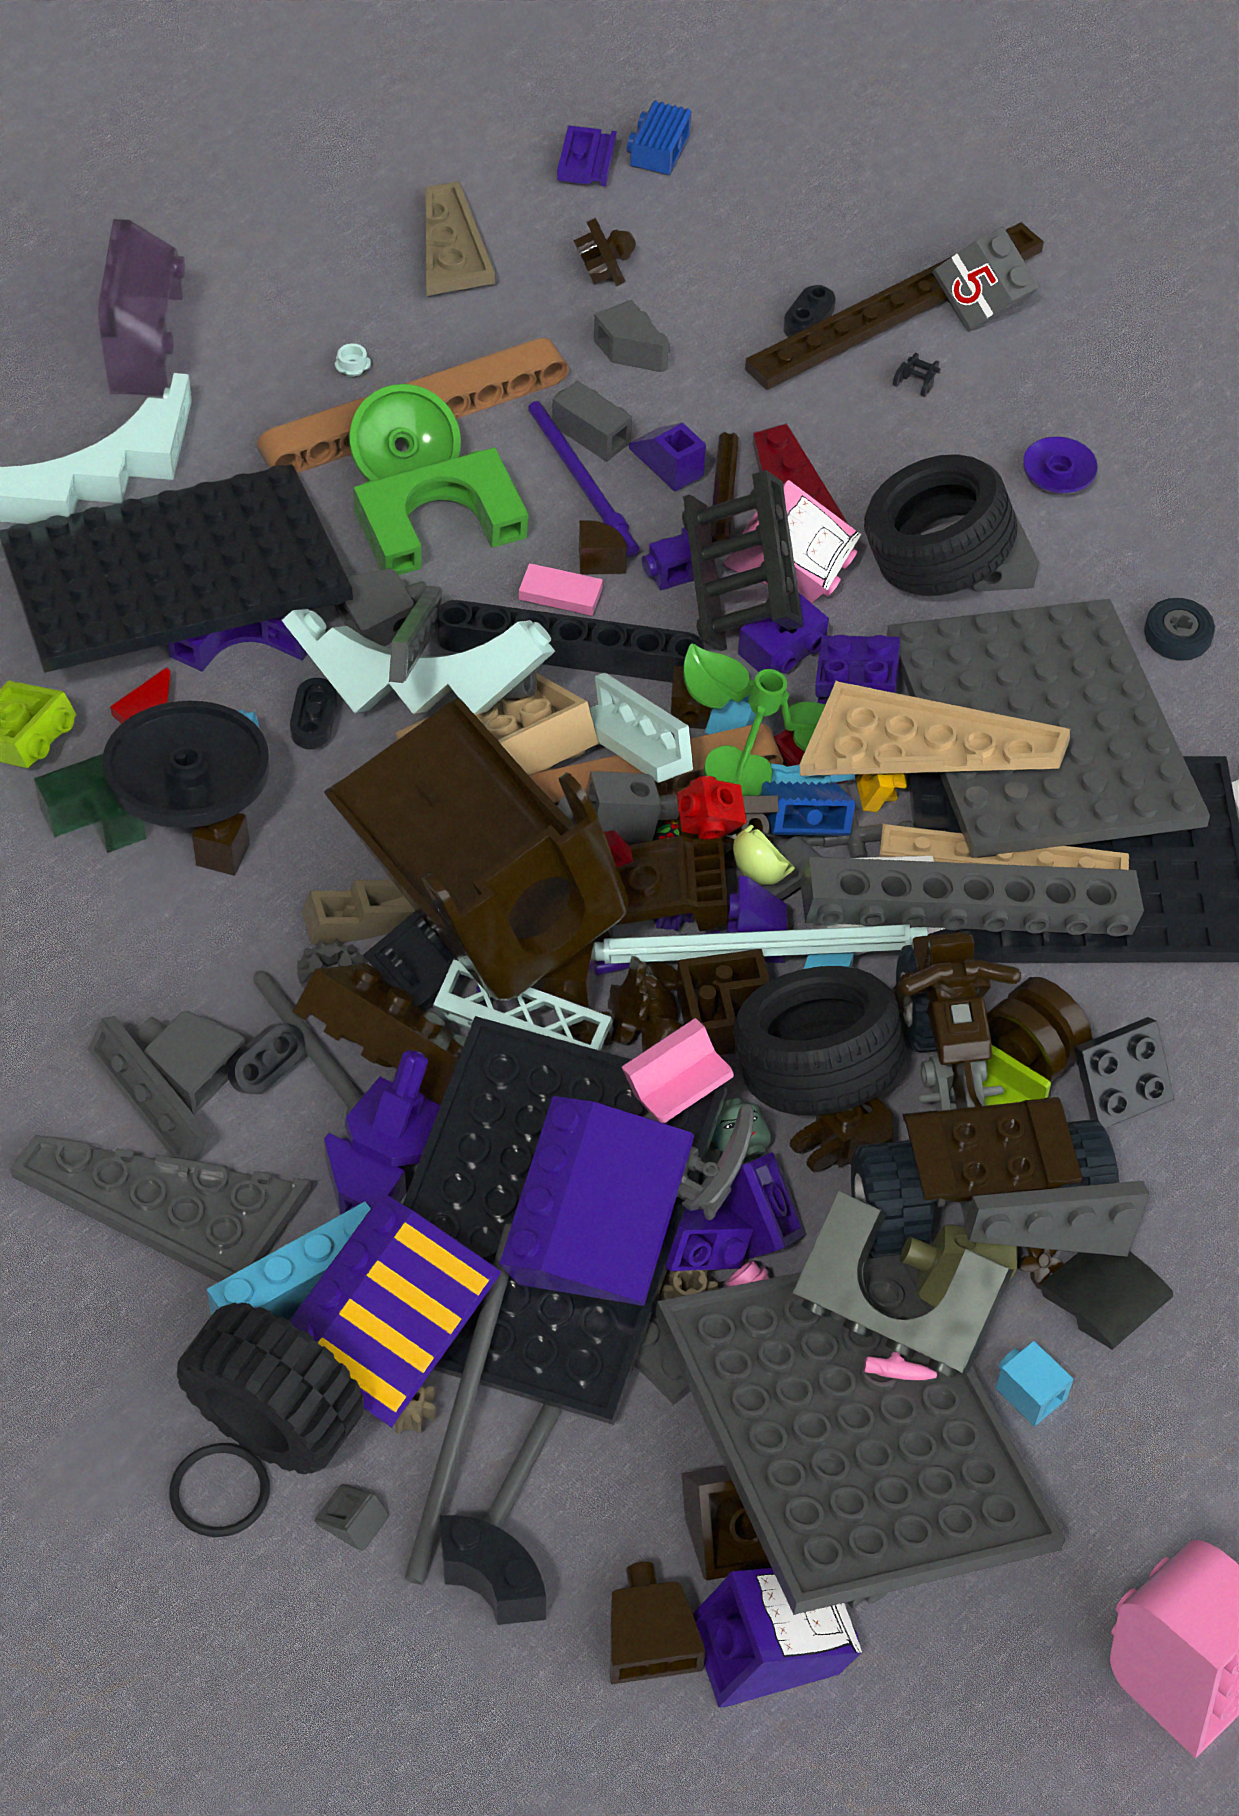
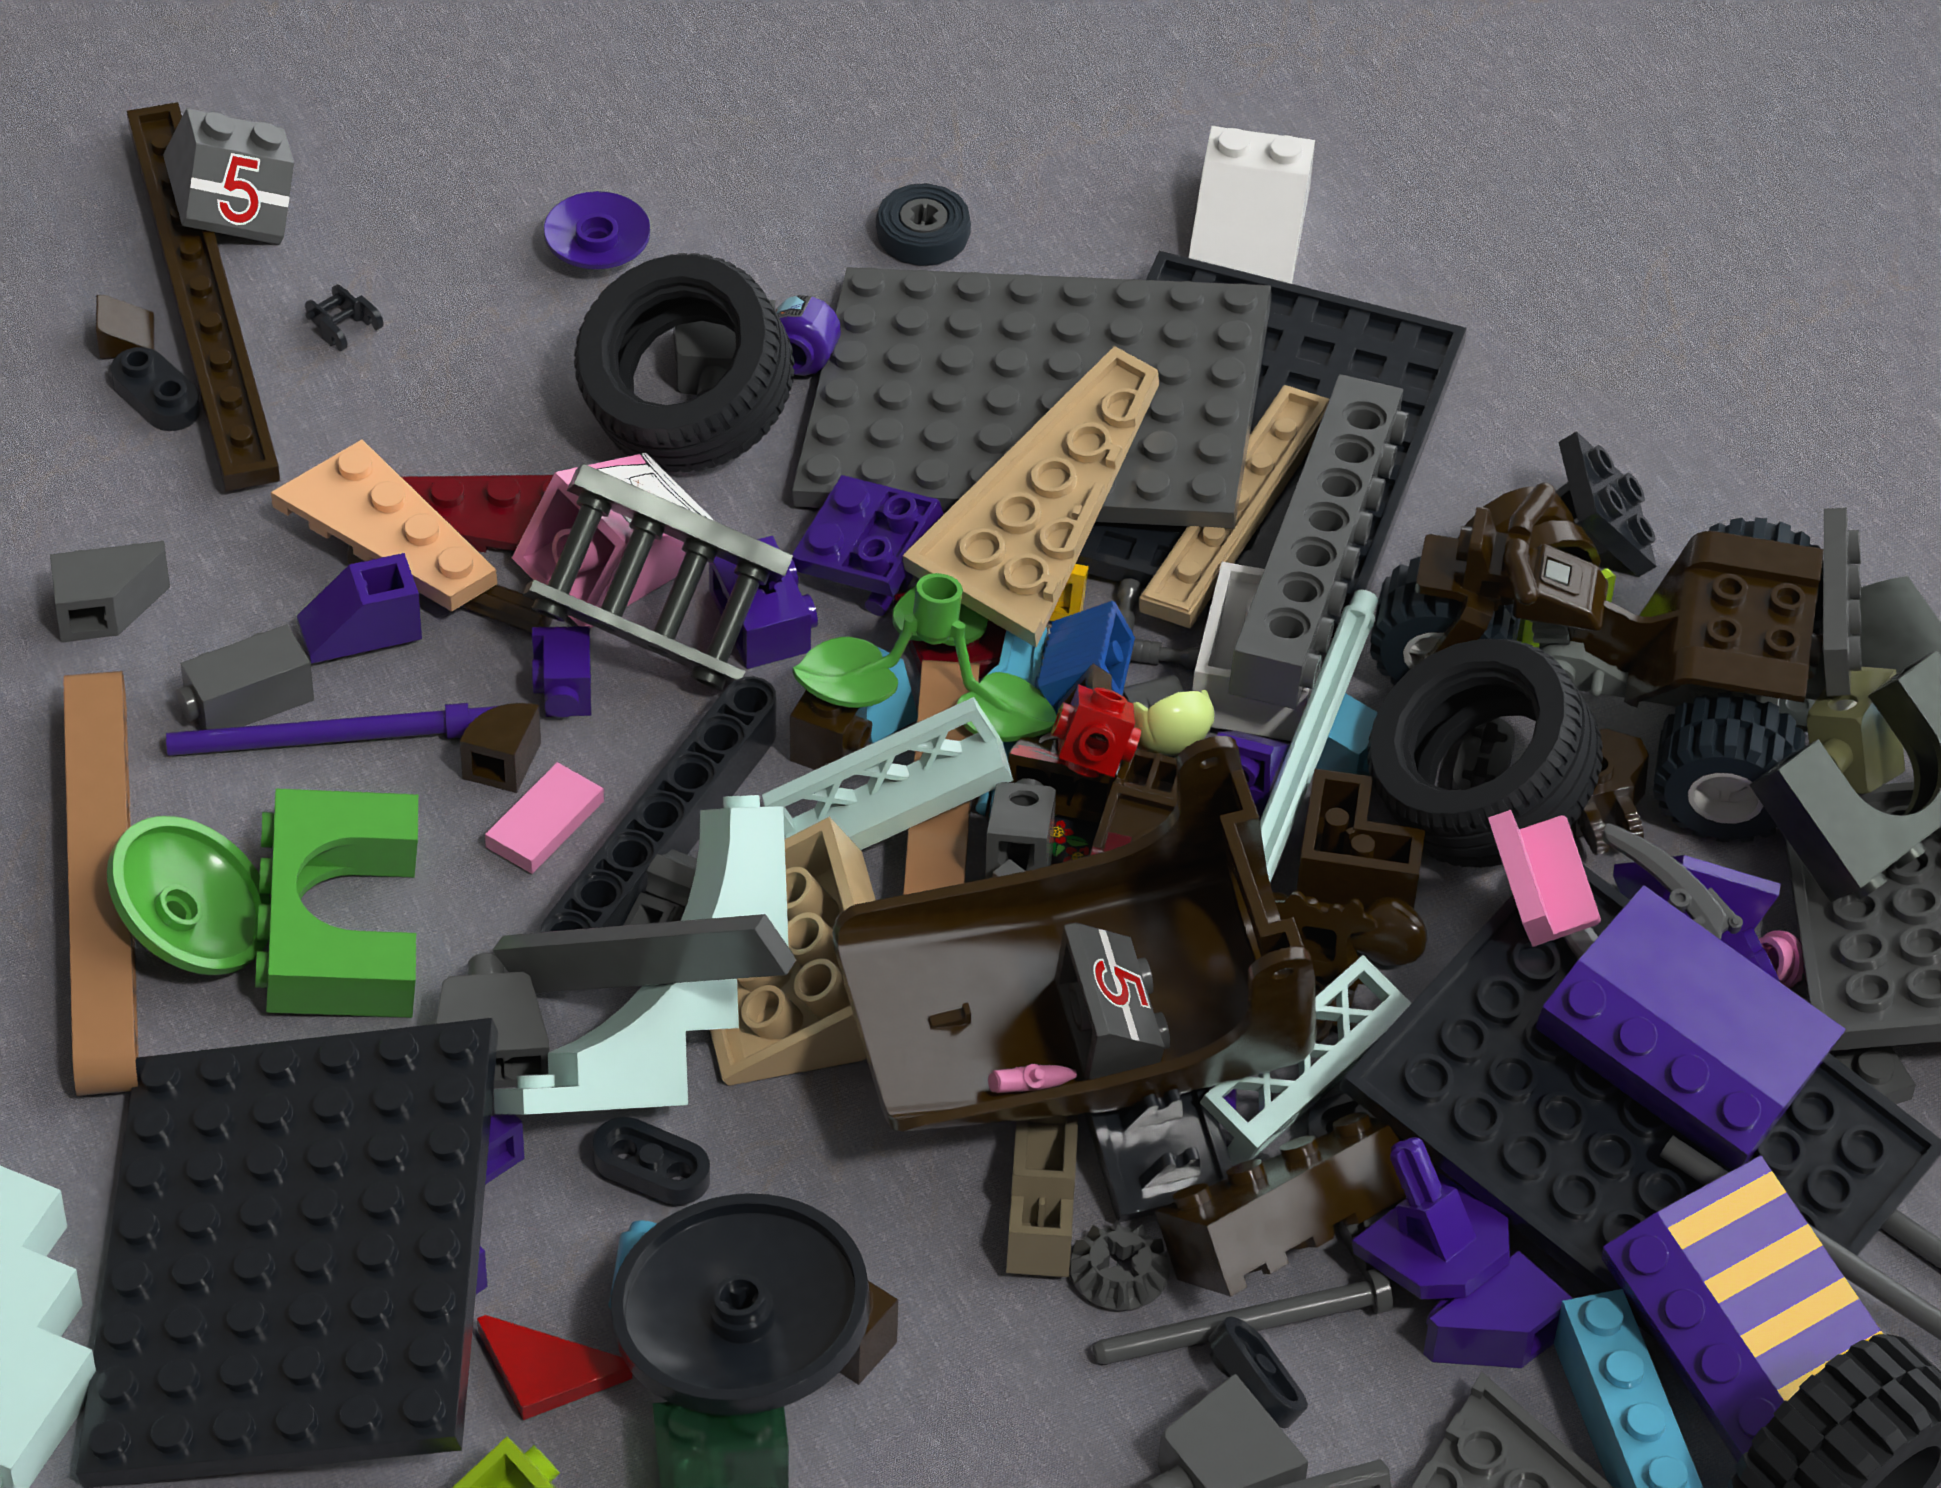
camera: 70 degrees left, 5 degrees down
(406, 851) = (1029, 1078): none -> bright pink helmet
(462, 853) = (1108, 1002): none -> dark grey slope
(743, 438) = (383, 516): none -> light nougat wing
(847, 281) = (122, 326): none -> slope
(1024, 587) = (811, 331): none -> dark purple head

